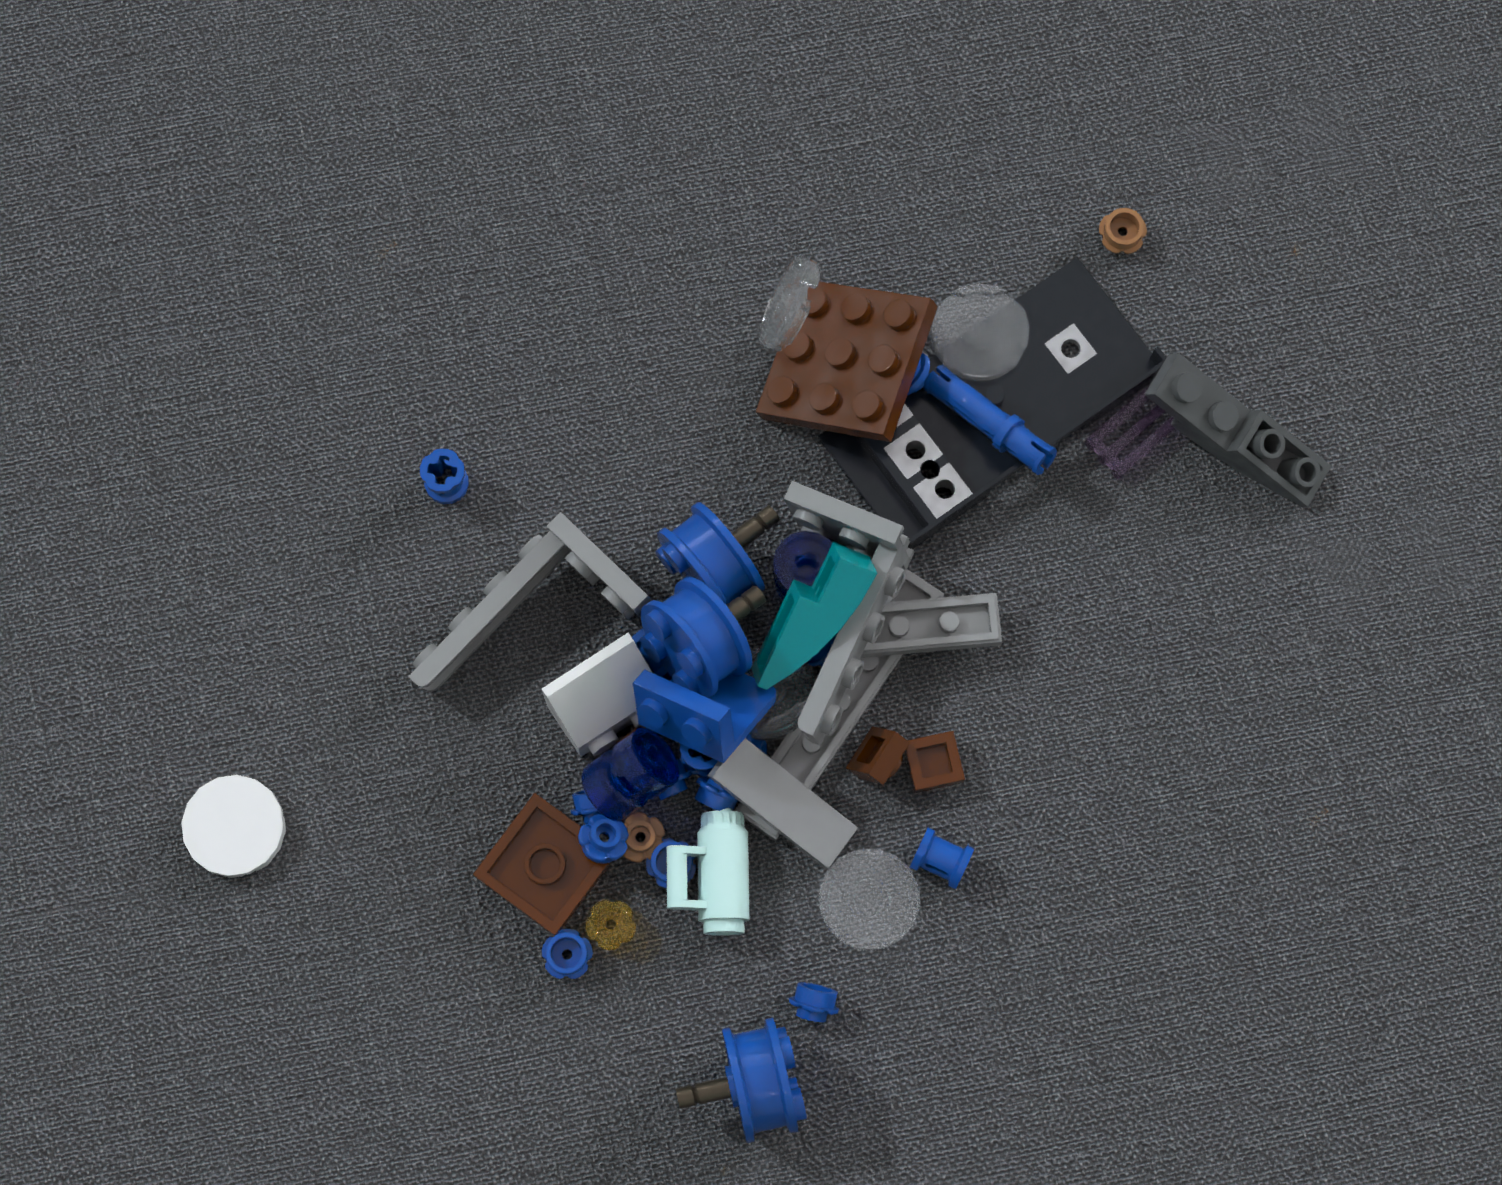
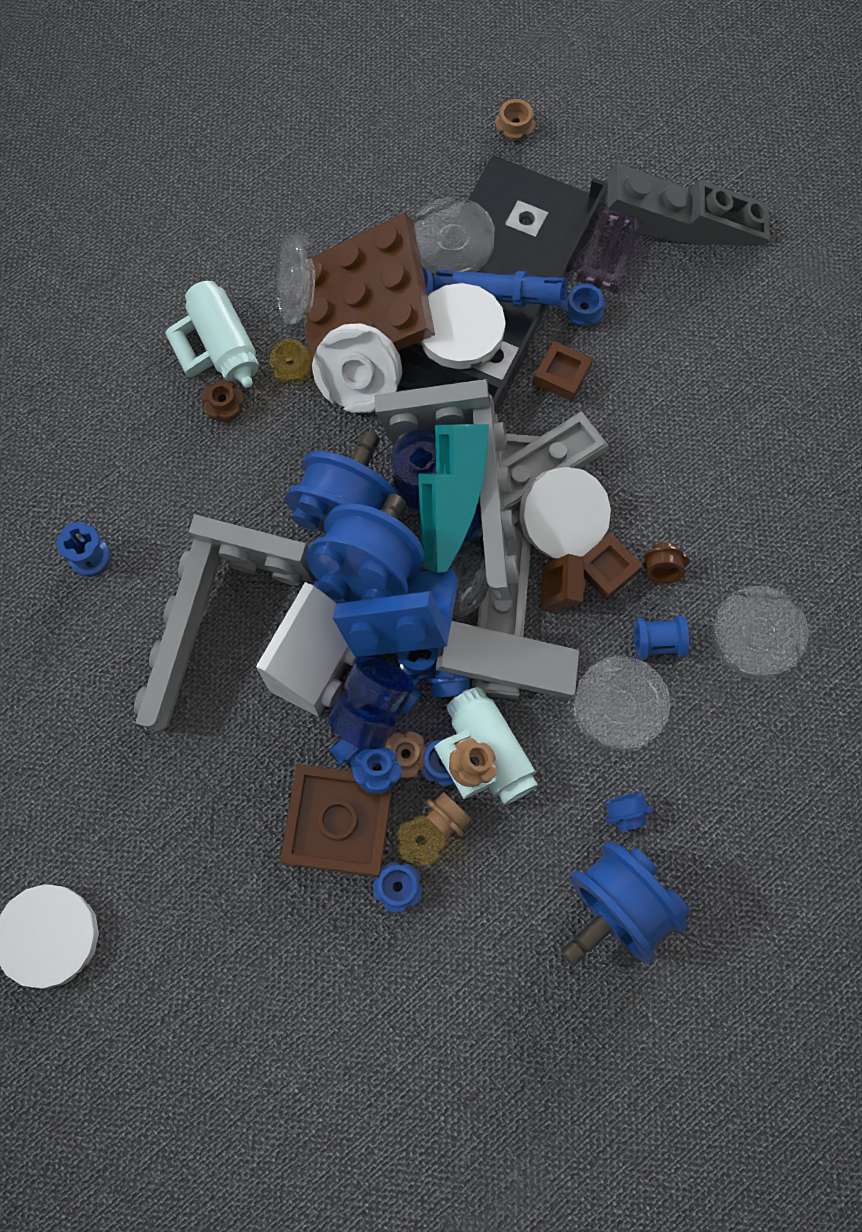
camera: 25 degrees left, 5 degrees down
(646, 915) = (447, 815): none -> medium nougat plate
(655, 401) = (226, 410): none -> reddish brown plate
(678, 883) = (462, 768): none -> medium nougat plate
(688, 317) = (220, 332): none -> light aqua piece
(738, 370) = (289, 350): none -> clear yellow plate
(800, 431) = (355, 366): none -> white tile
(920, 687) = (564, 512): none -> white tile
(929, 443) = (466, 326): none -> white tile
(991, 787) = (665, 563): none -> reddish brown plate
(1007, 537) = (562, 371): none -> reddish brown plate
(1043, 904) = (759, 632): none -> clear tile
(1076, 466) = (588, 296): none -> blue plate

